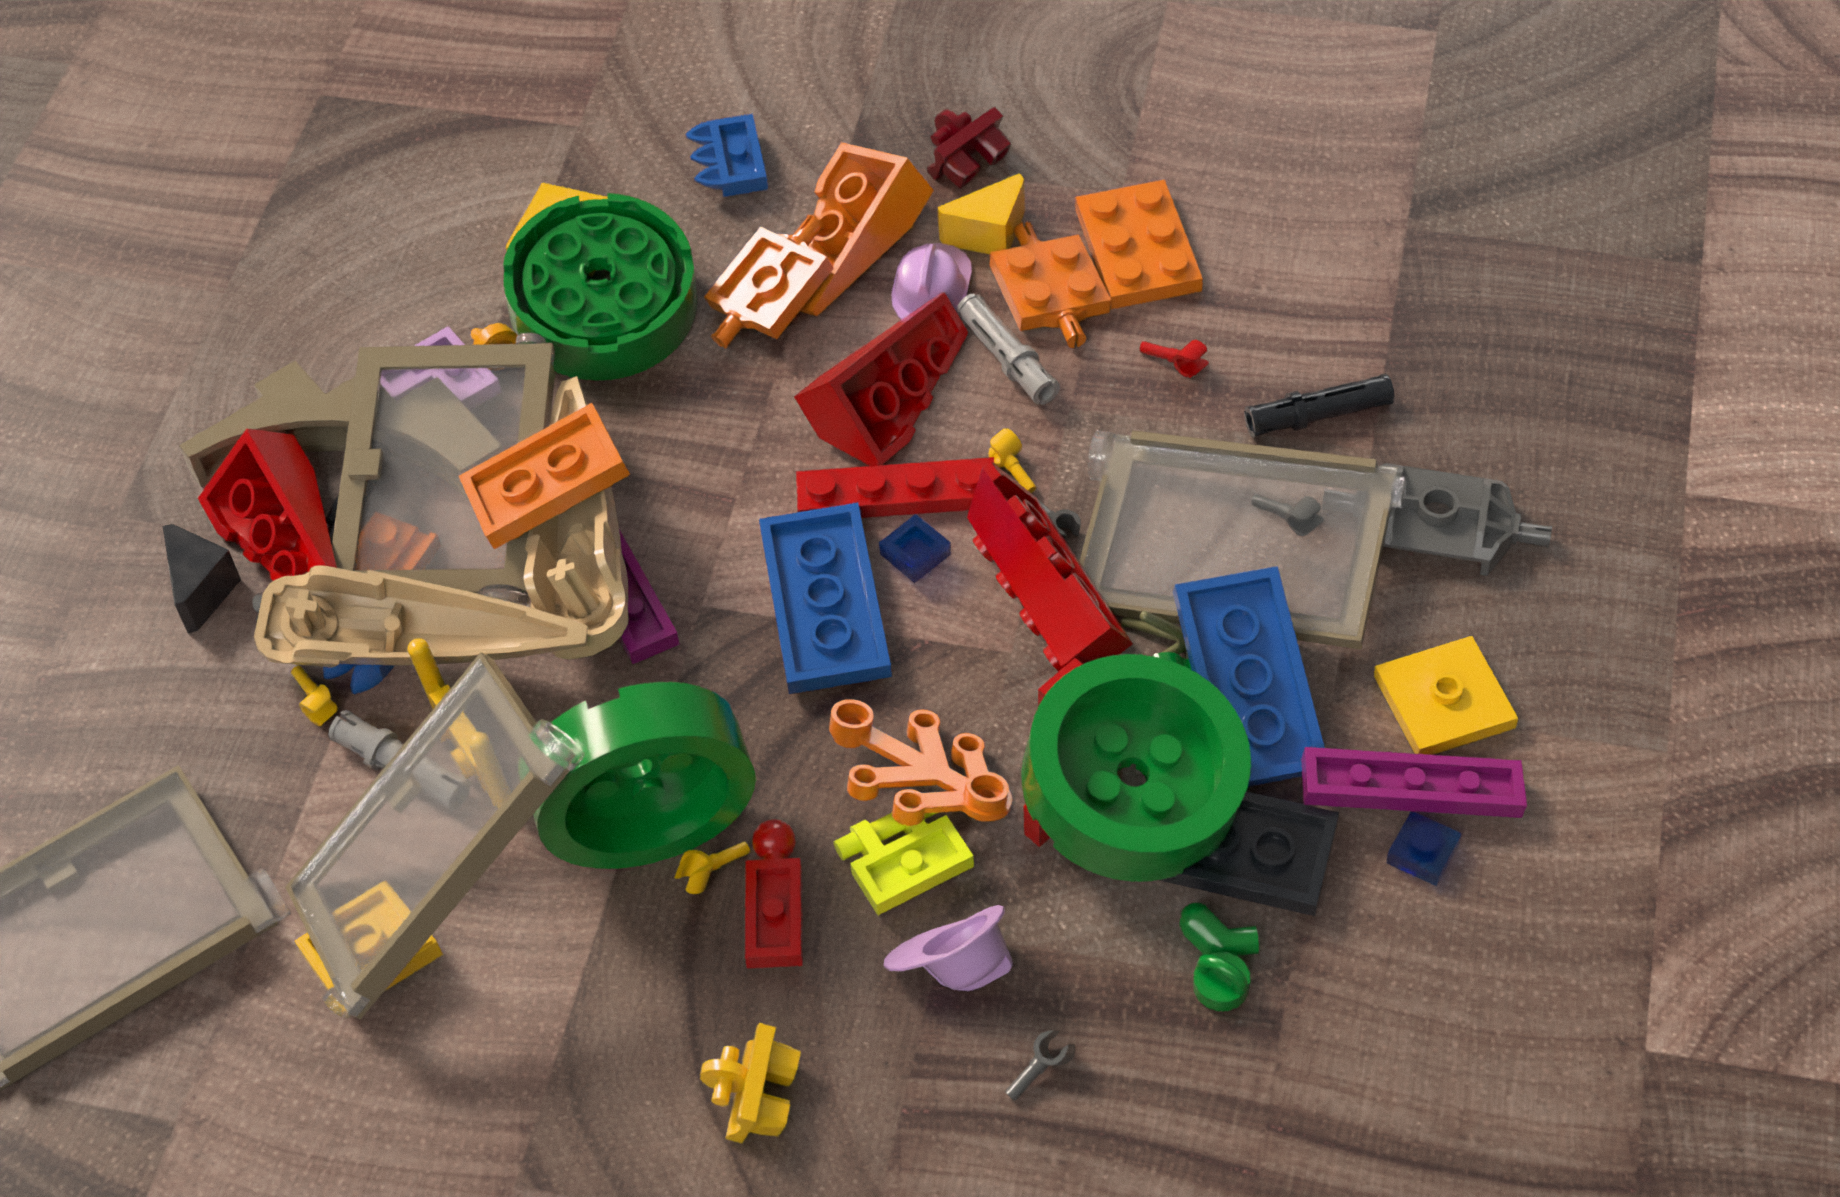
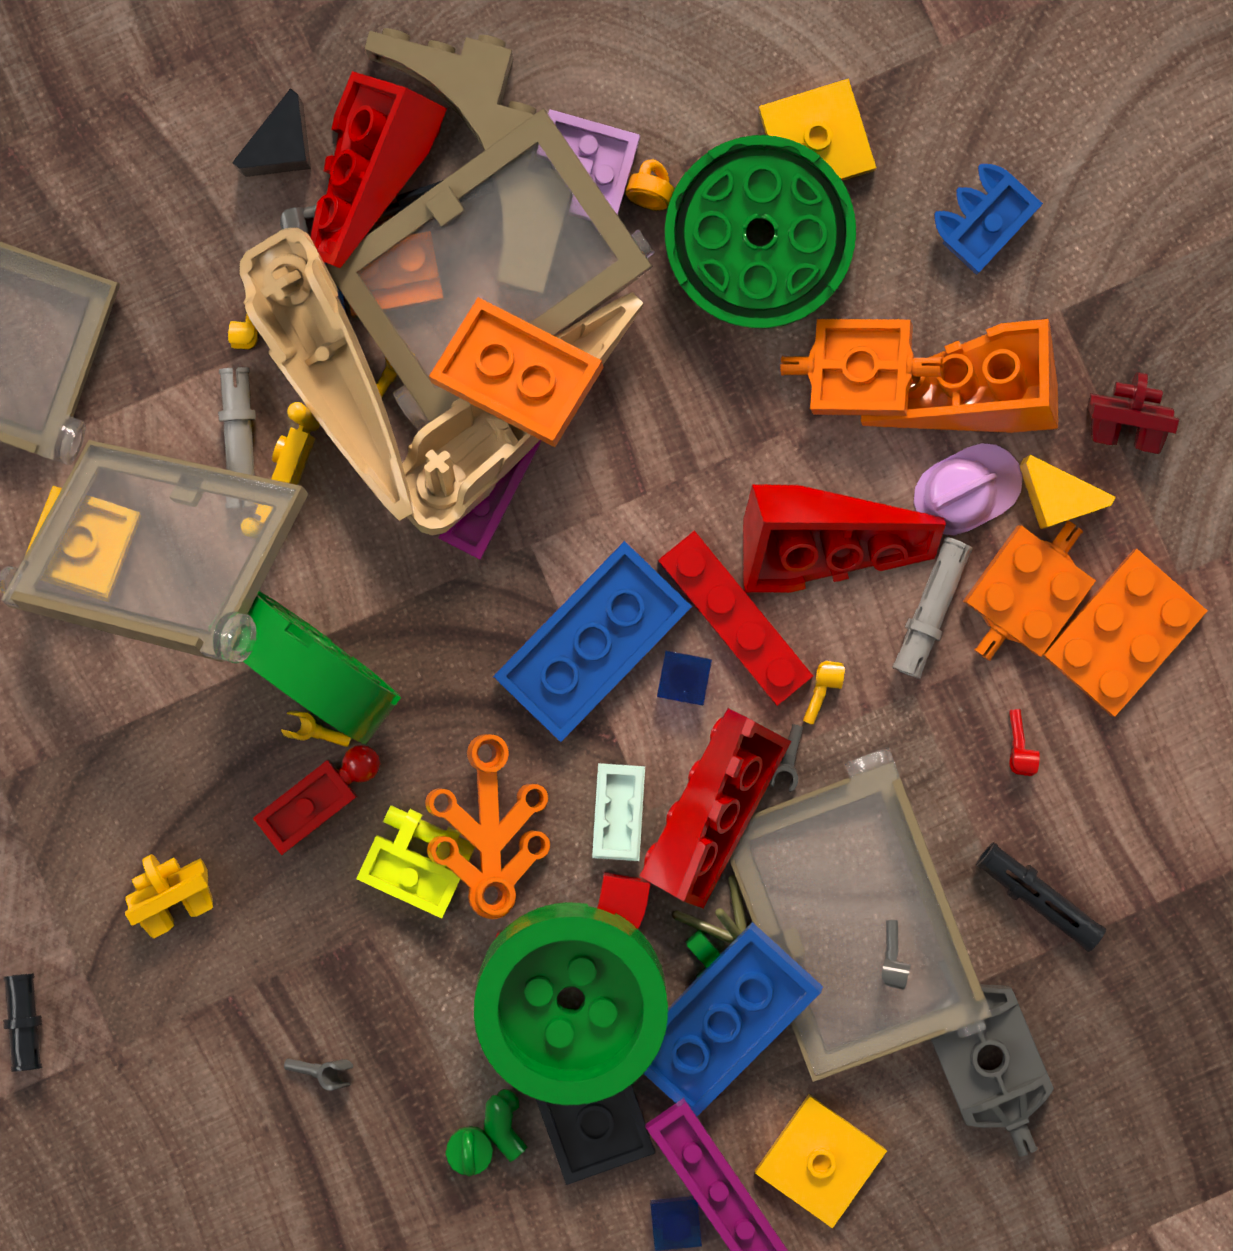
camera: 50 degrees right, 35 degrees up
(958, 954) = (357, 953): lavender piece -> none
(992, 664) = (618, 812): none -> light aqua plate

